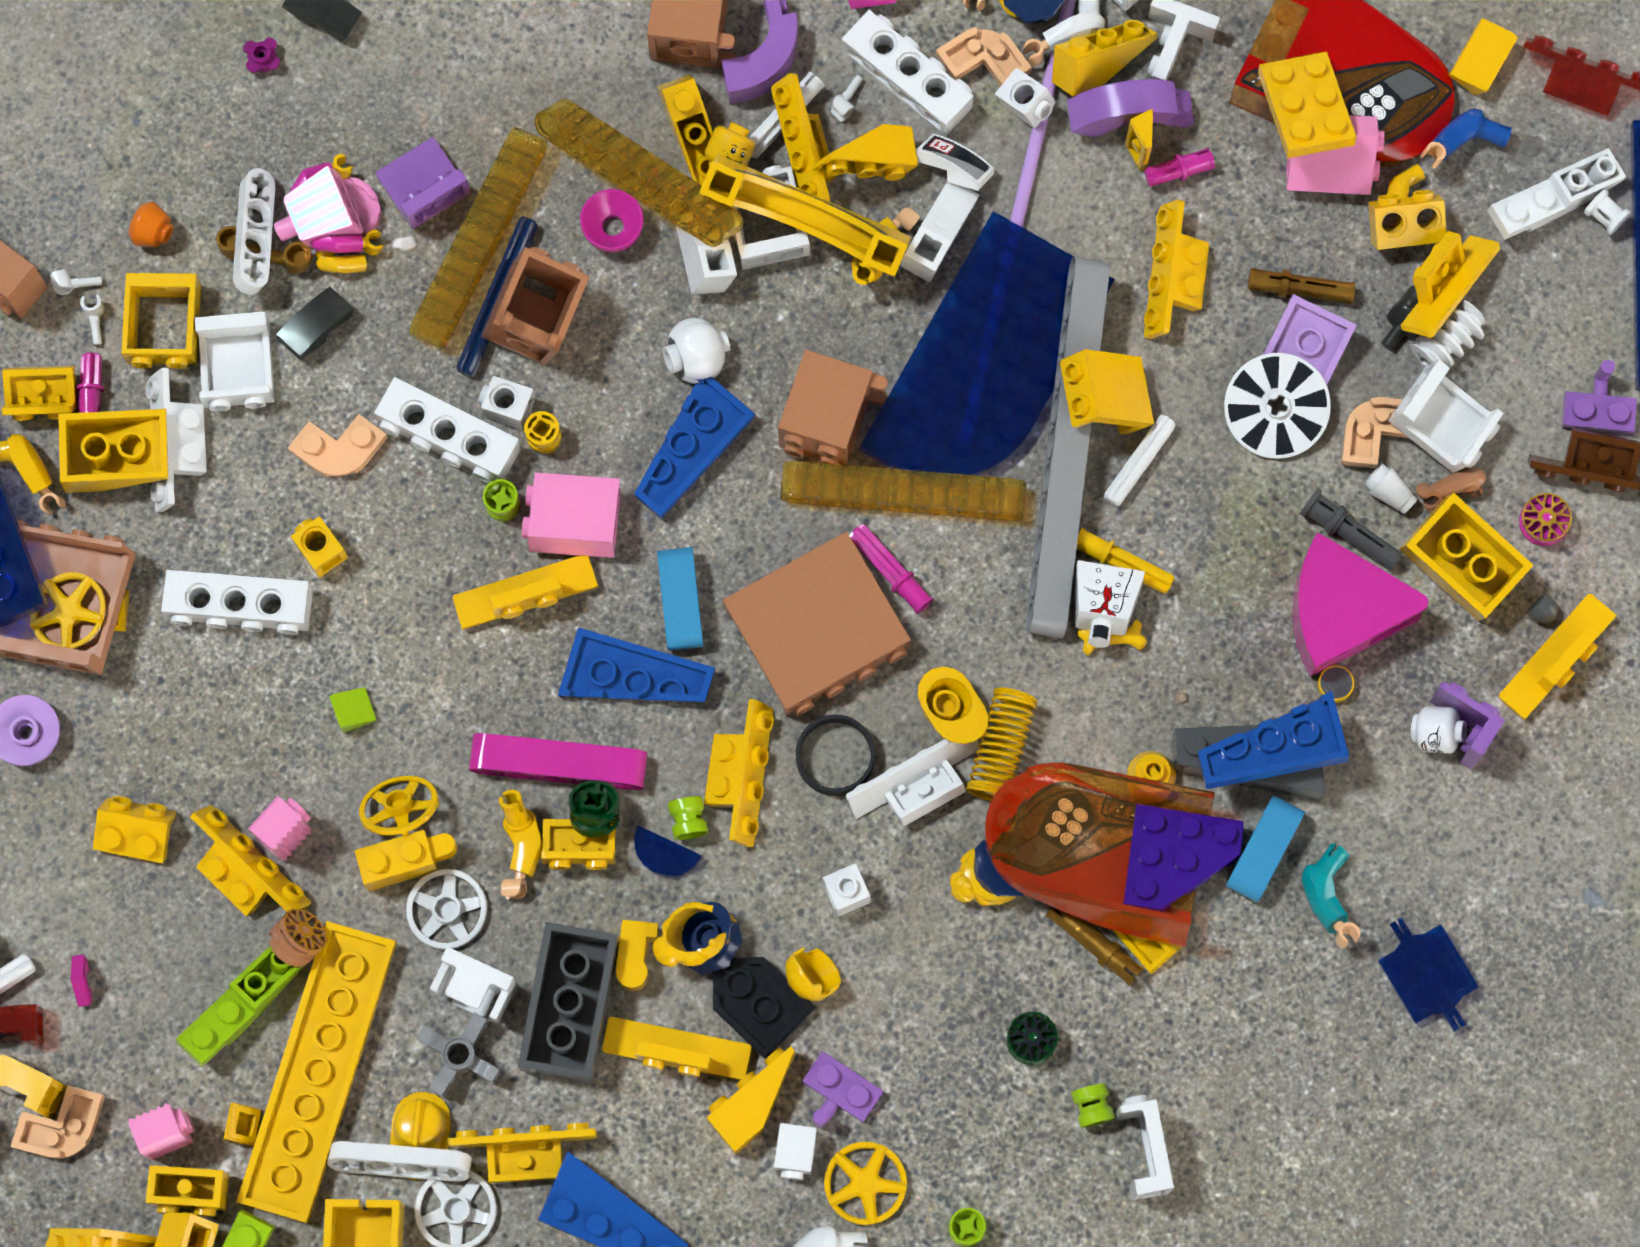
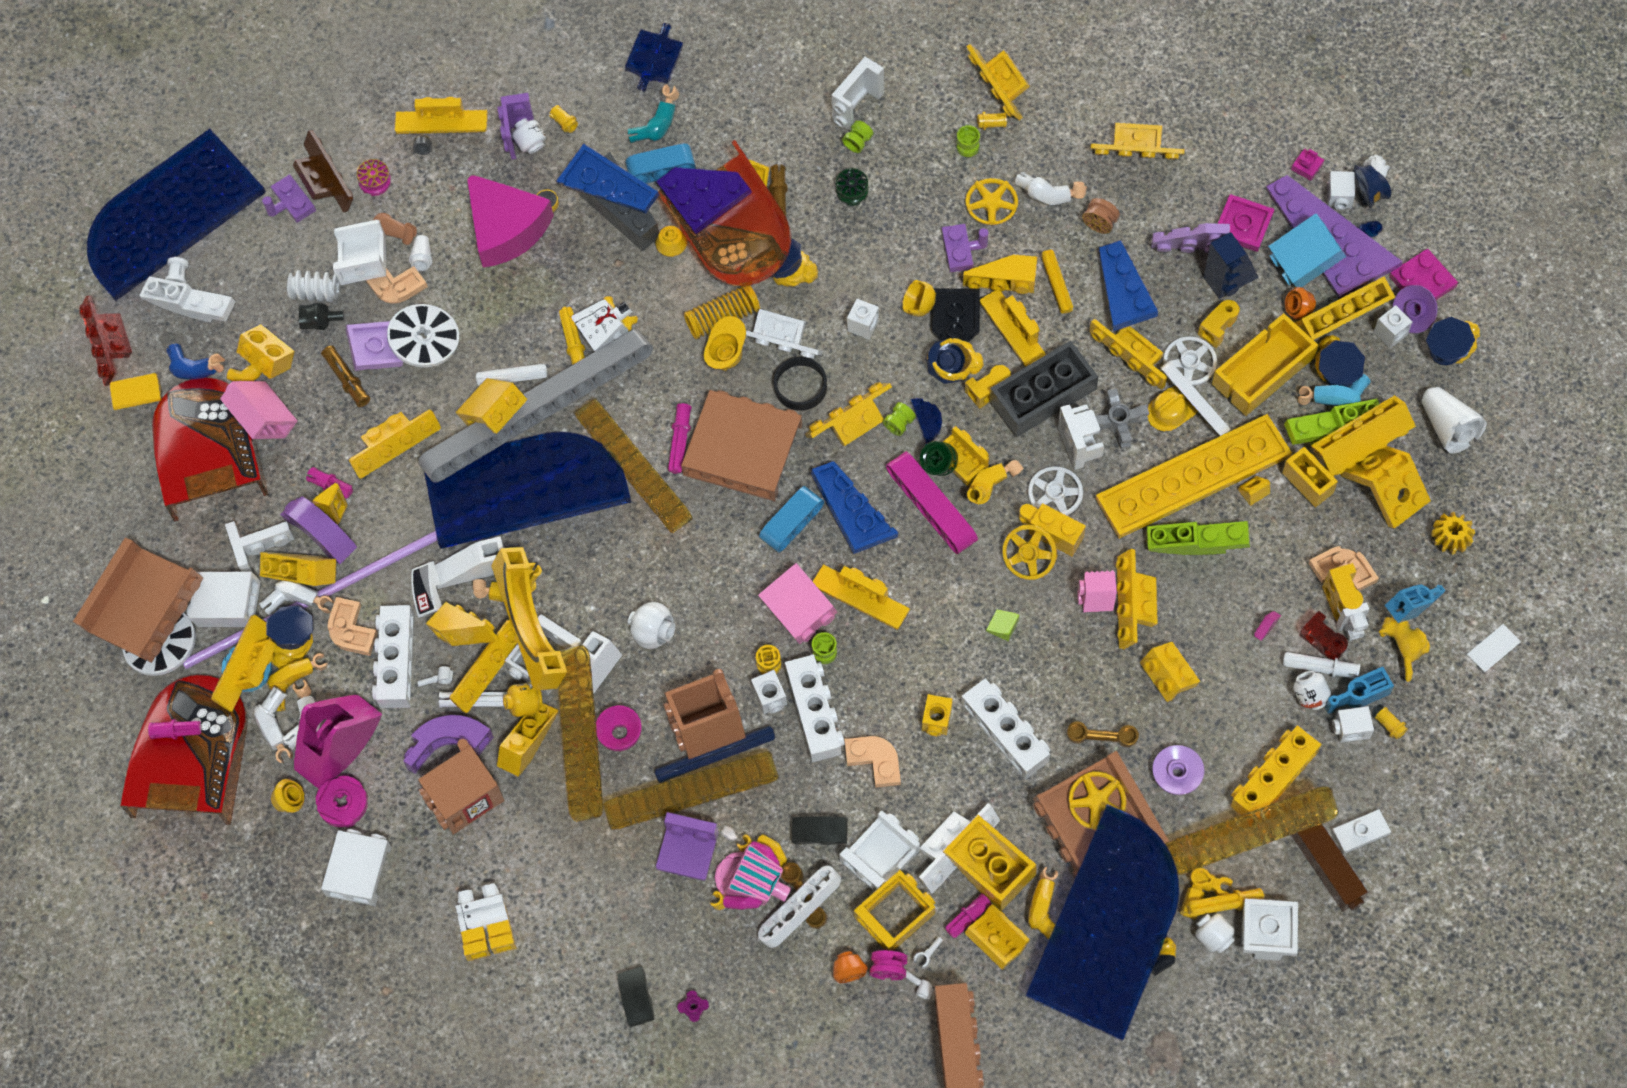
camera: 130 degrees left, 10 degrees down
(112, 262) = (888, 965): none -> dark pink wheel
(161, 1131) = (1296, 510): bright pink brick -> none
(162, 672) = (1126, 737): none -> pearl gold bar
(295, 939) = (1143, 533): nougat wheel -> none
(692, 1156) = (1057, 281): none -> yellow axle
(701, 433) = (699, 585): blue wing -> none
(795, 1151) = (1008, 238): white brick -> none
(827, 408) = (625, 528): nougat container -> none
(1017, 89) = (357, 593): white brick -> none
(1307, 105) = (244, 427): yellow plate -> none
(1336, 520) = (460, 262): dark grey pin -> none
(1432, 795) = (568, 122): none -> yellow pin
(1446, 280) = (284, 303): yellow bracket -> none
(1466, 557) = (428, 187): yellow brick -> none

